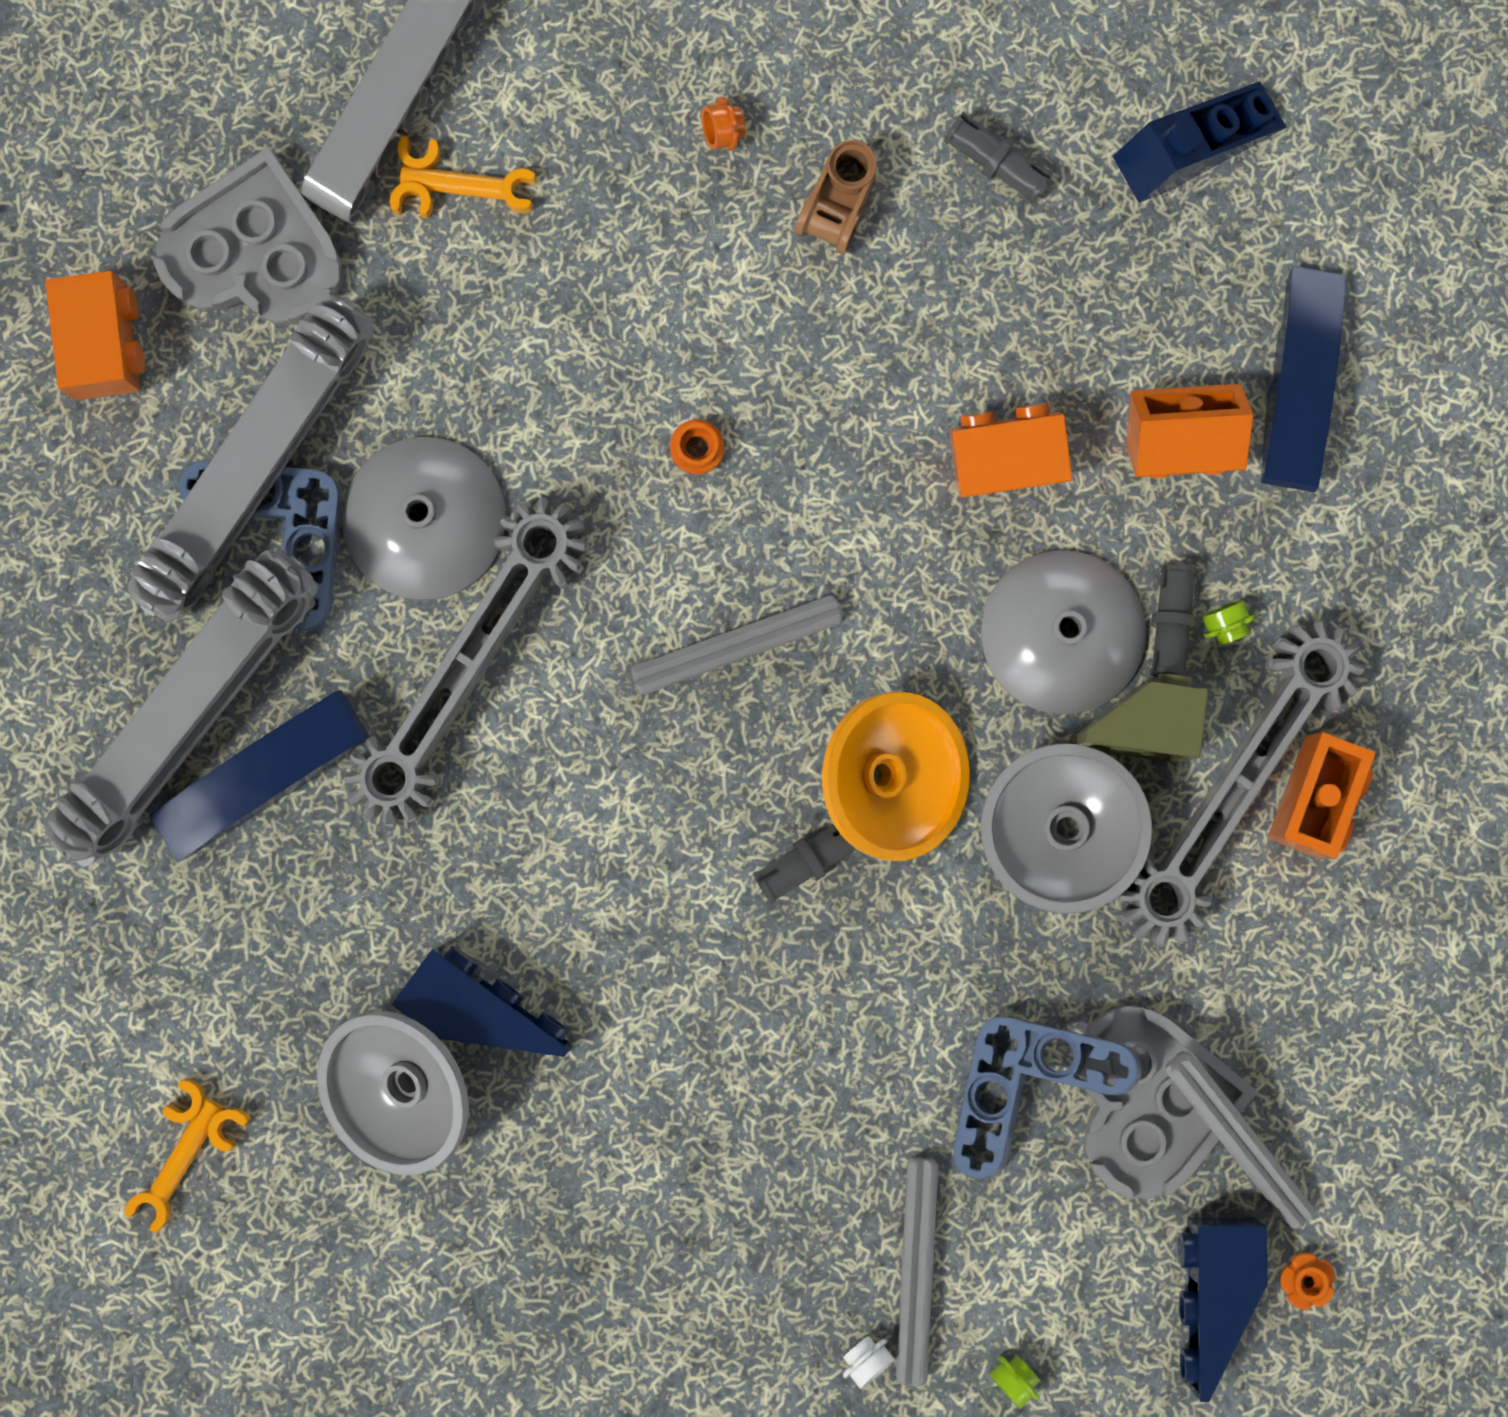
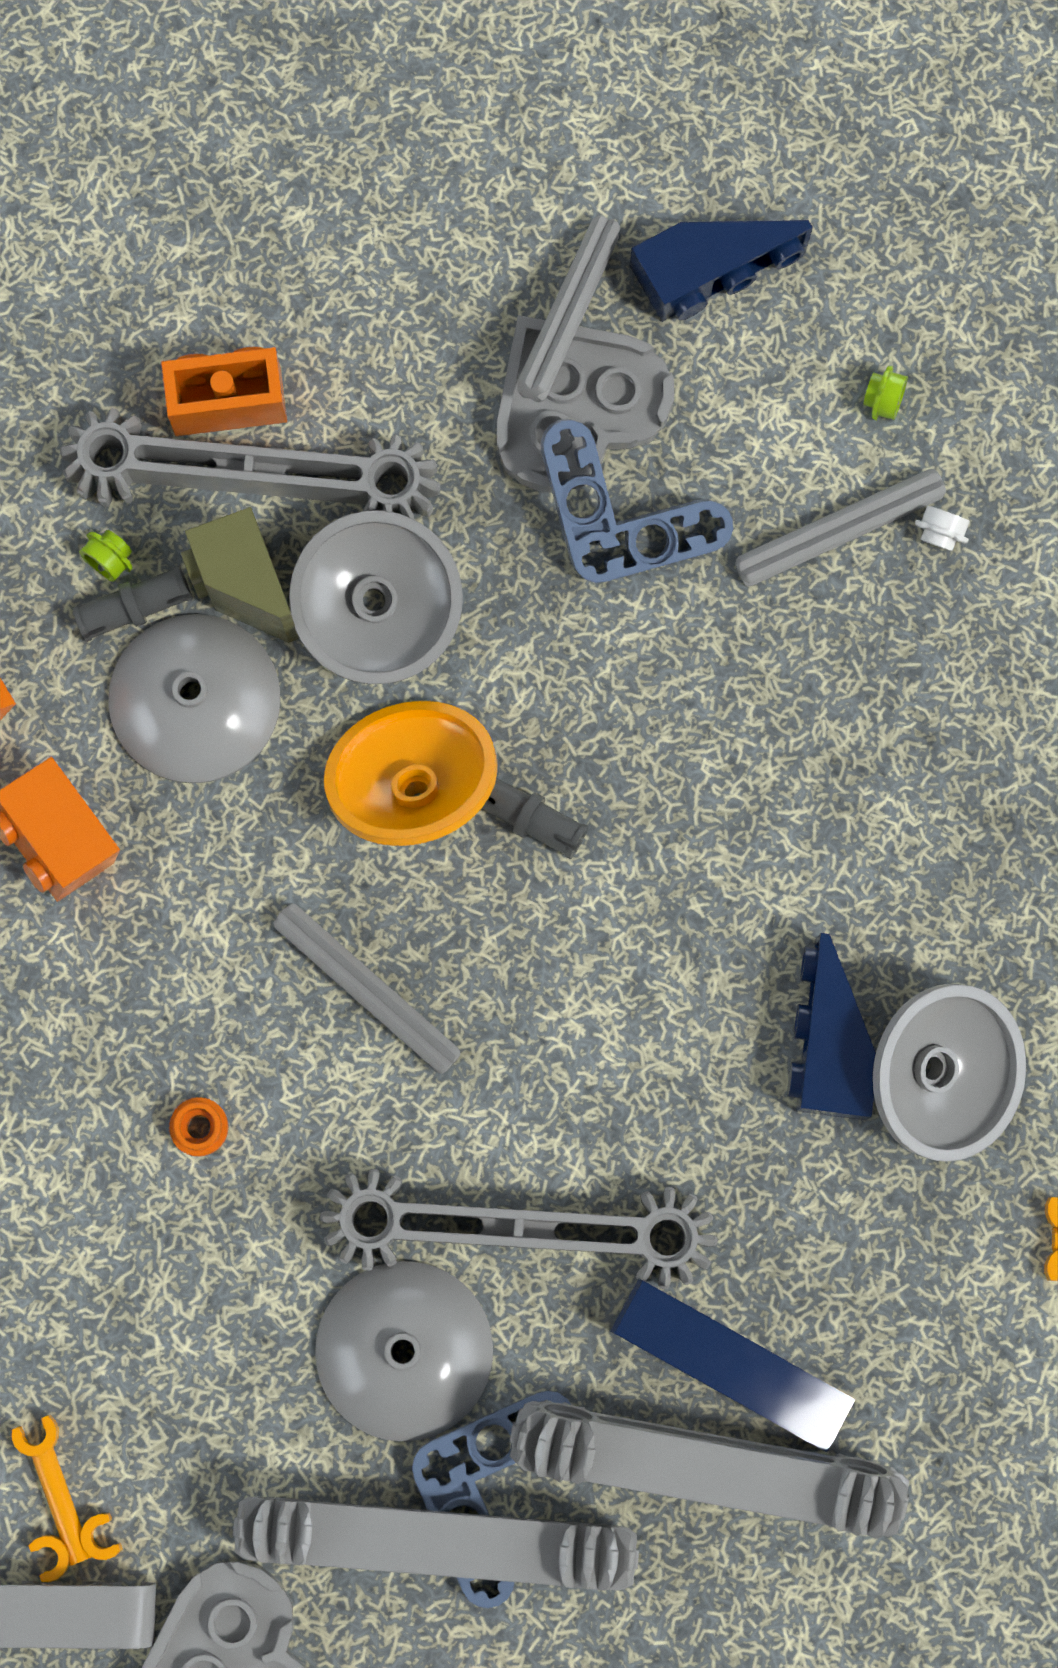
camera: 120 degrees left, 5 degrees down
(1293, 1277) = (658, 206): orange plate -> none

